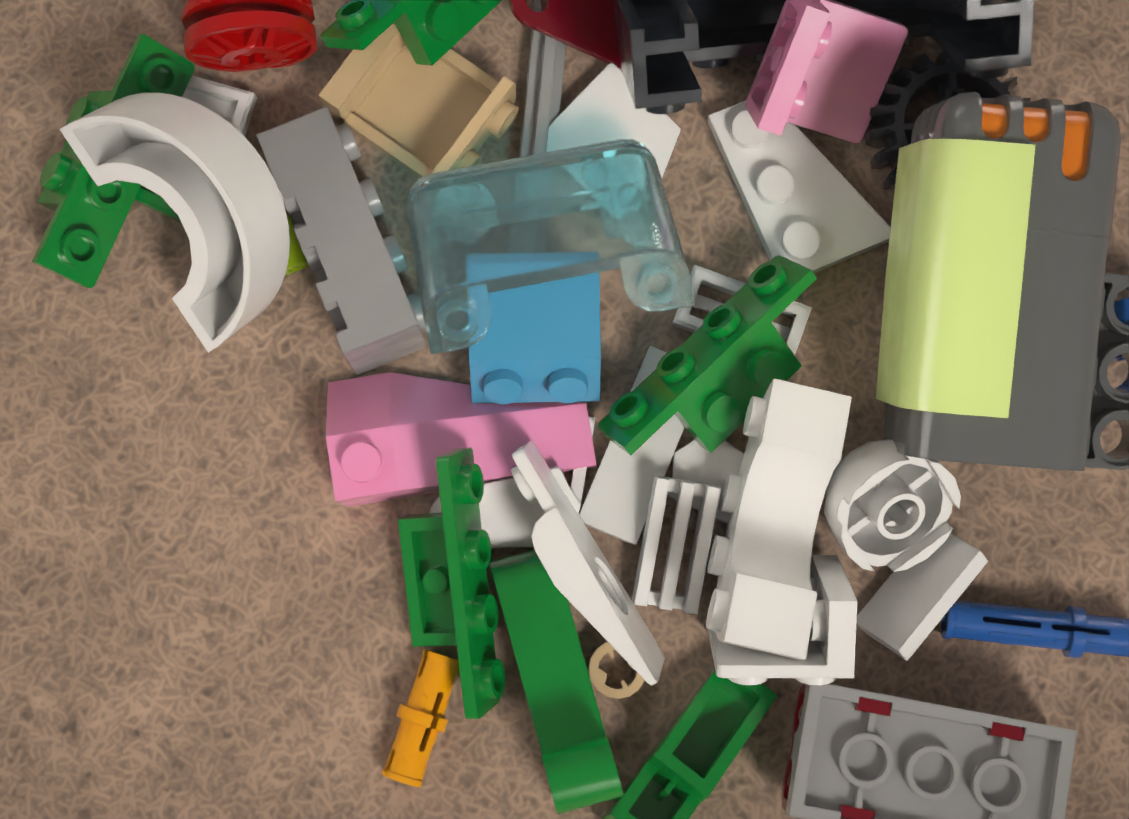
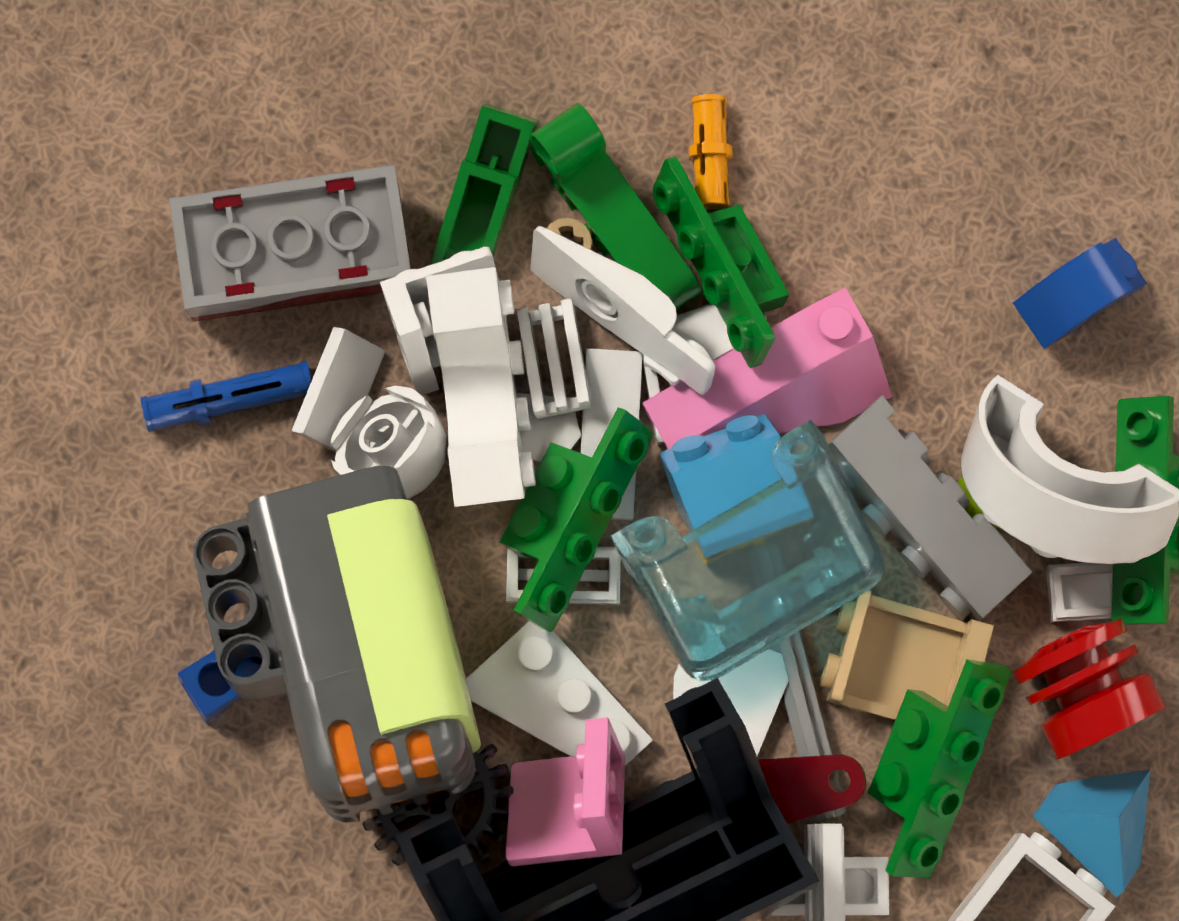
camera: 160 degrees right, 0 degrees up
(82, 413) = (1079, 291): none -> blue brick

